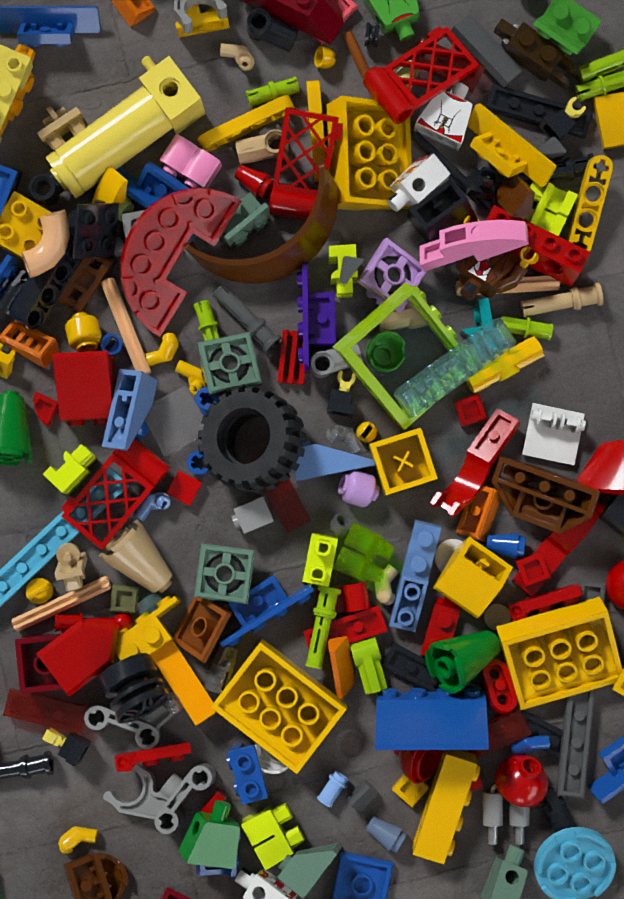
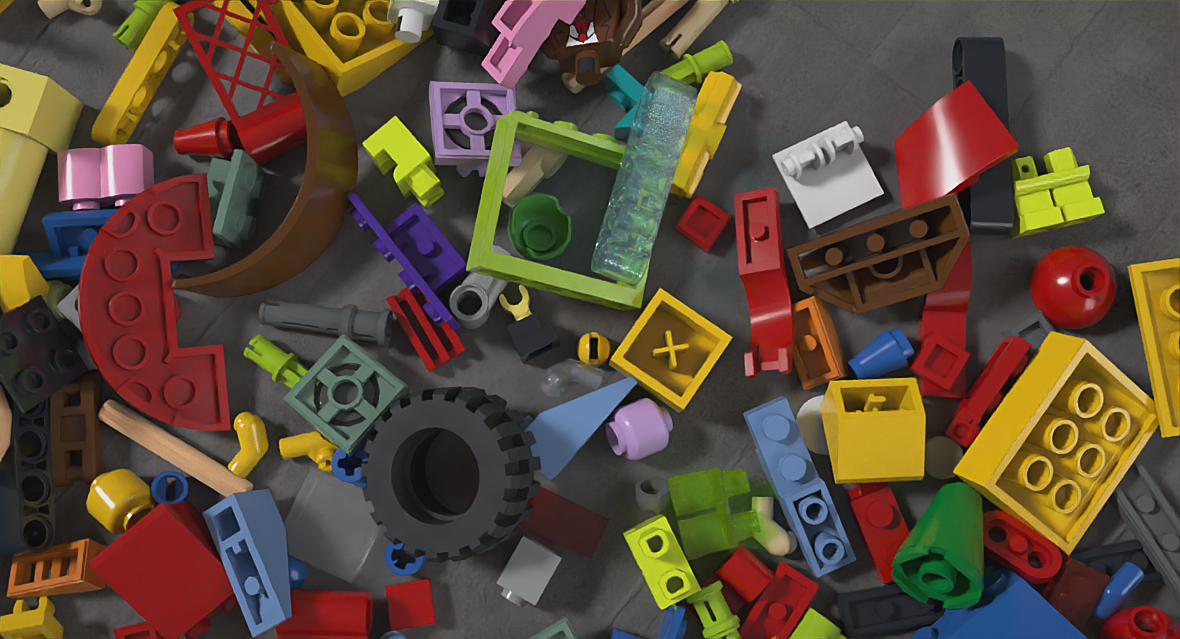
camera: 45 degrees left, 5 degrees down
(258, 147) = (182, 92): tan piece -> none
(348, 268) = (409, 148): dark grey slope -> none

